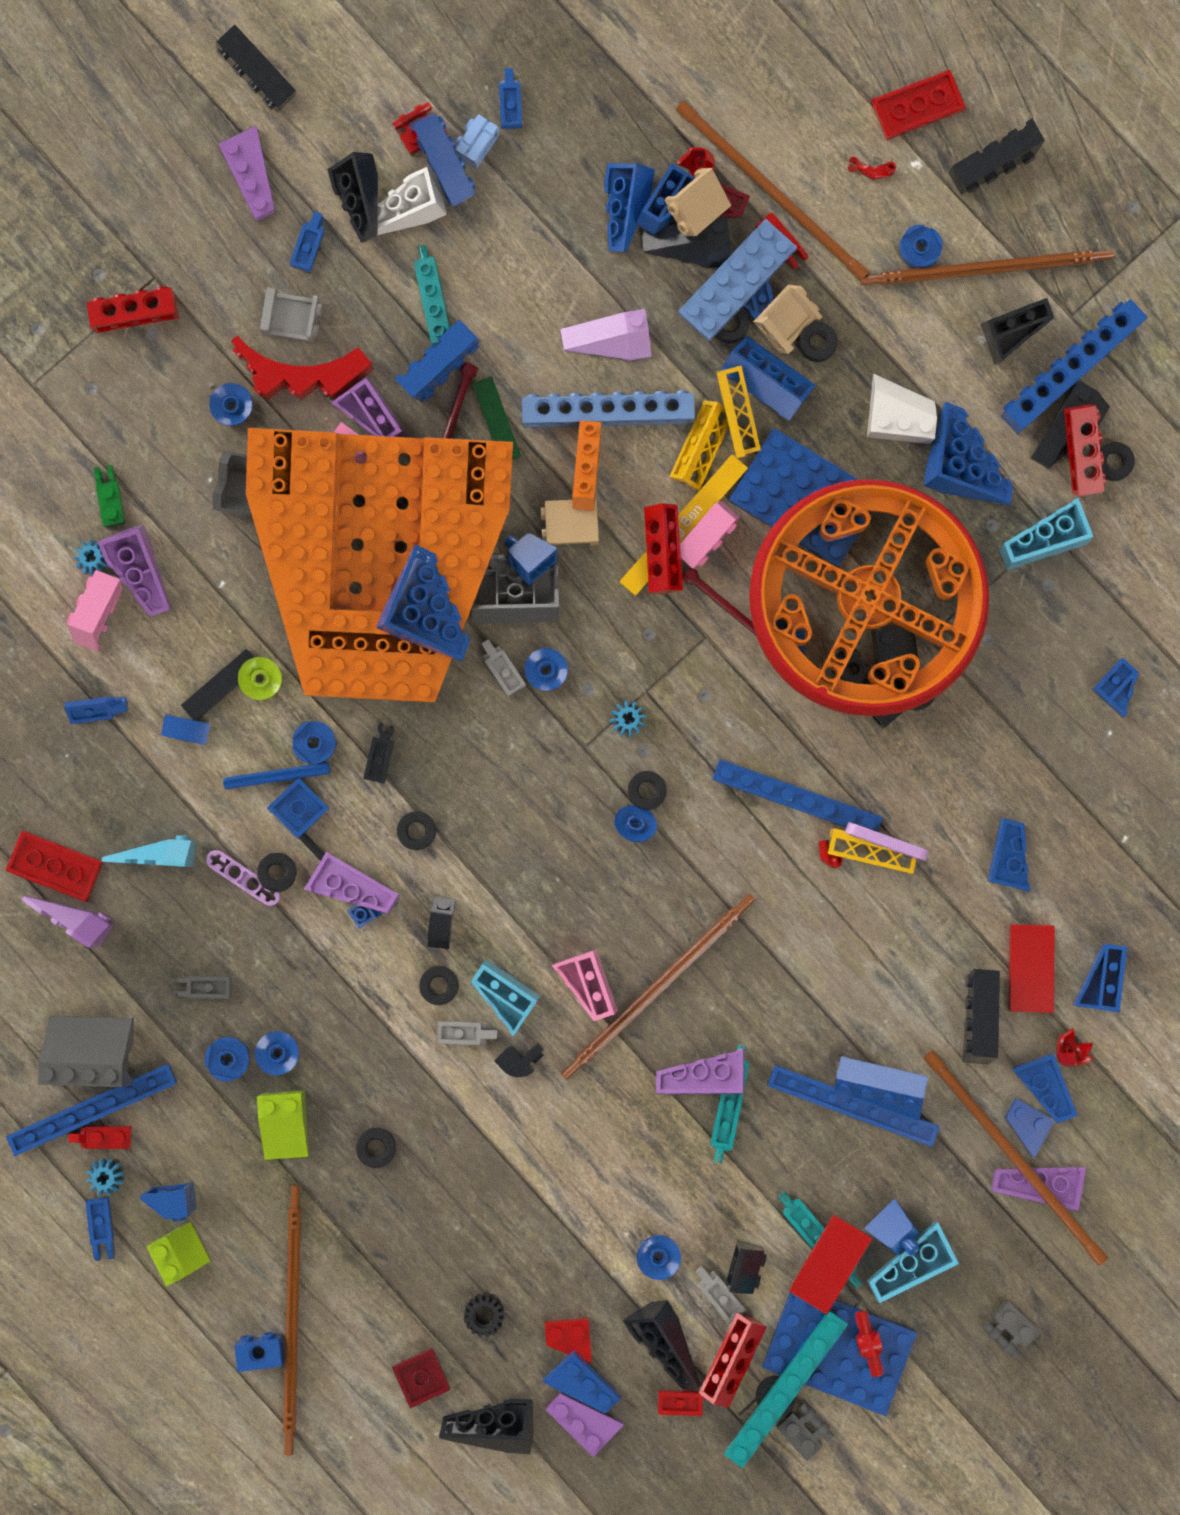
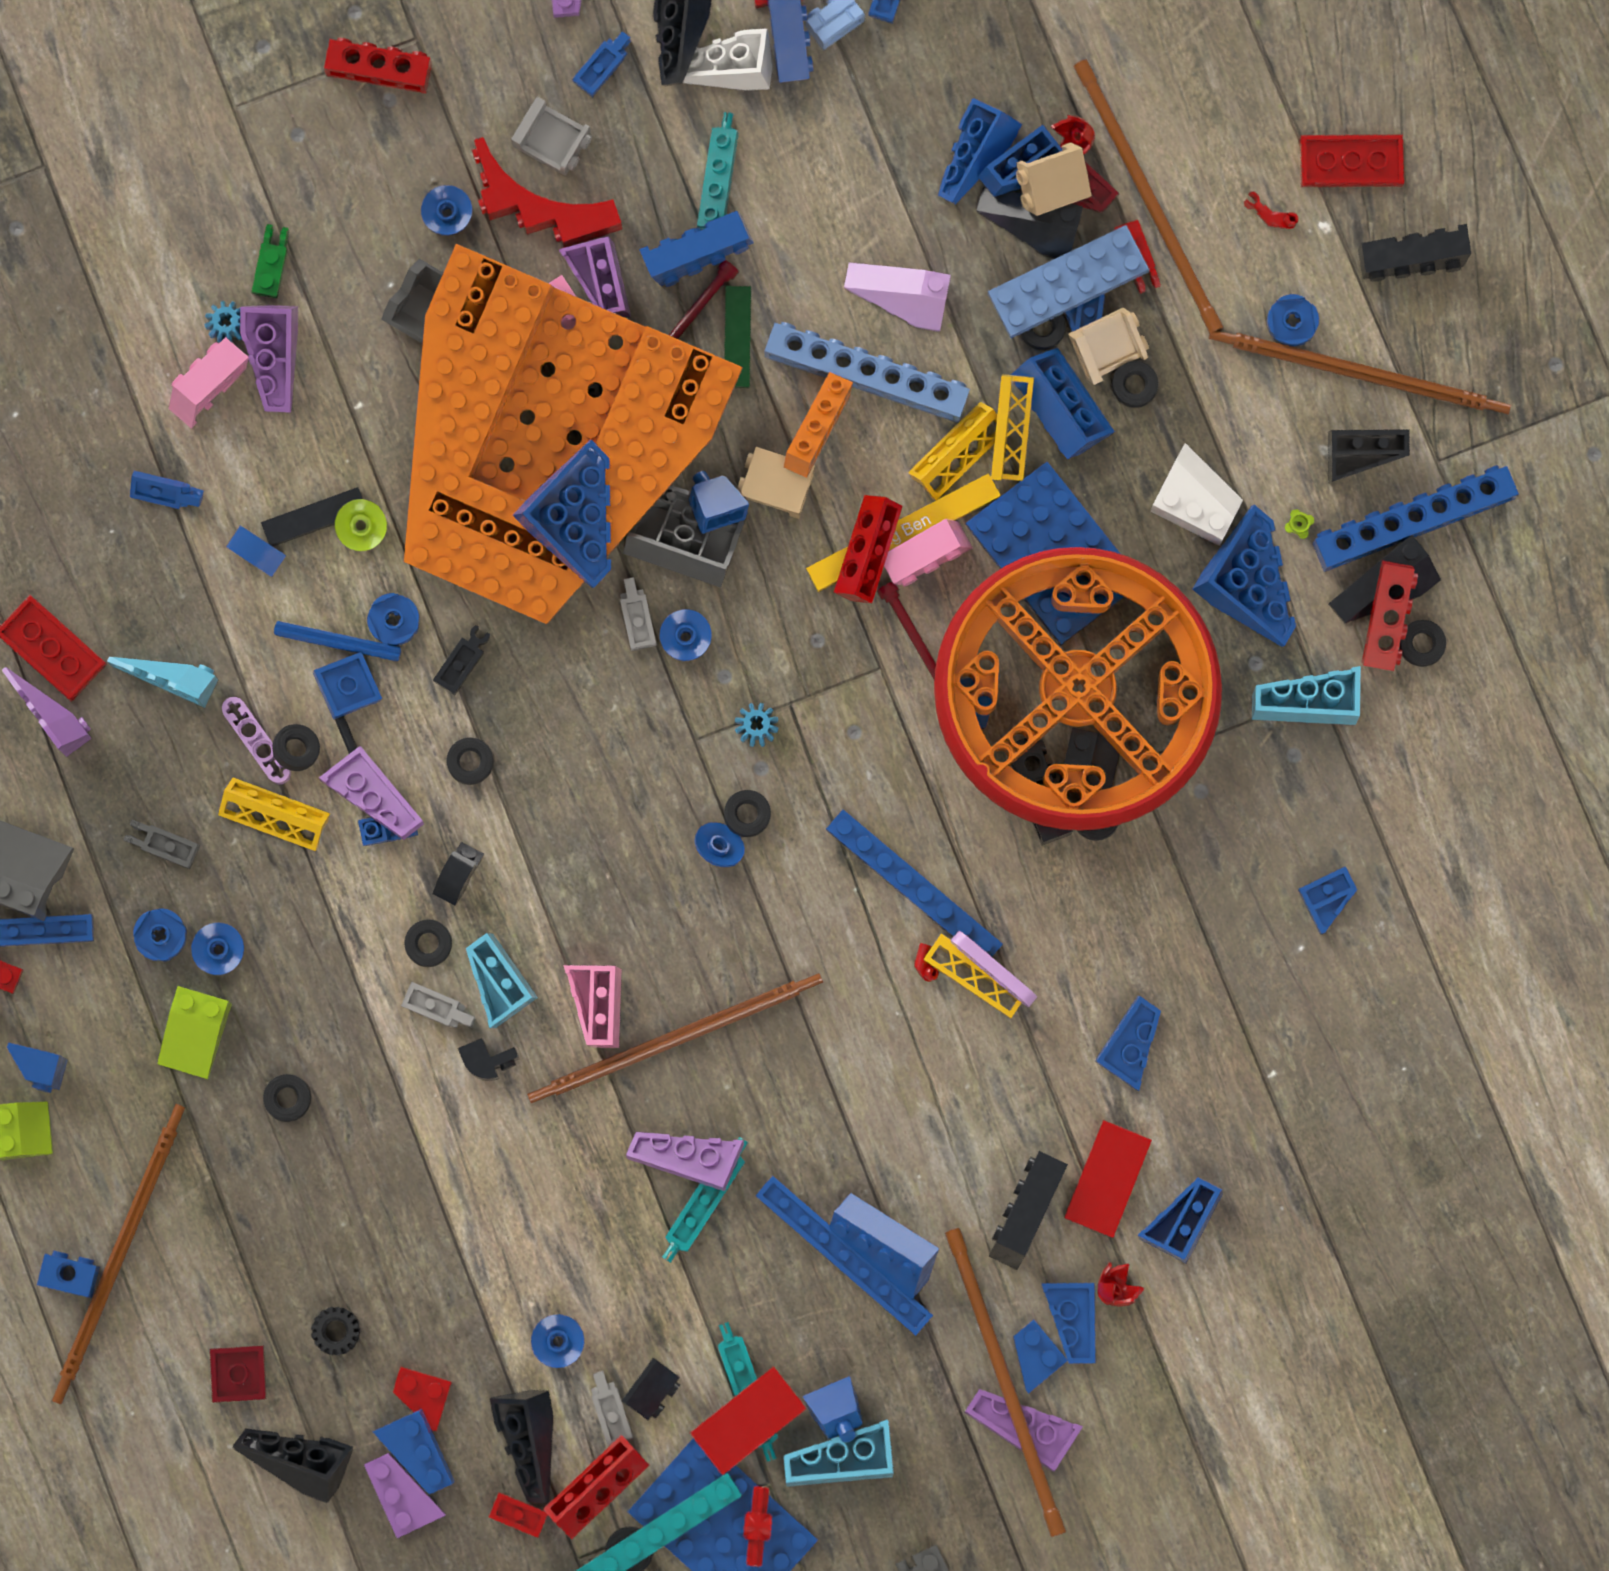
camera: 25 degrees right, 5 degrees down
(278, 926) = (274, 808): none -> yellow fence
(990, 399) = (1297, 516): none -> lime plate

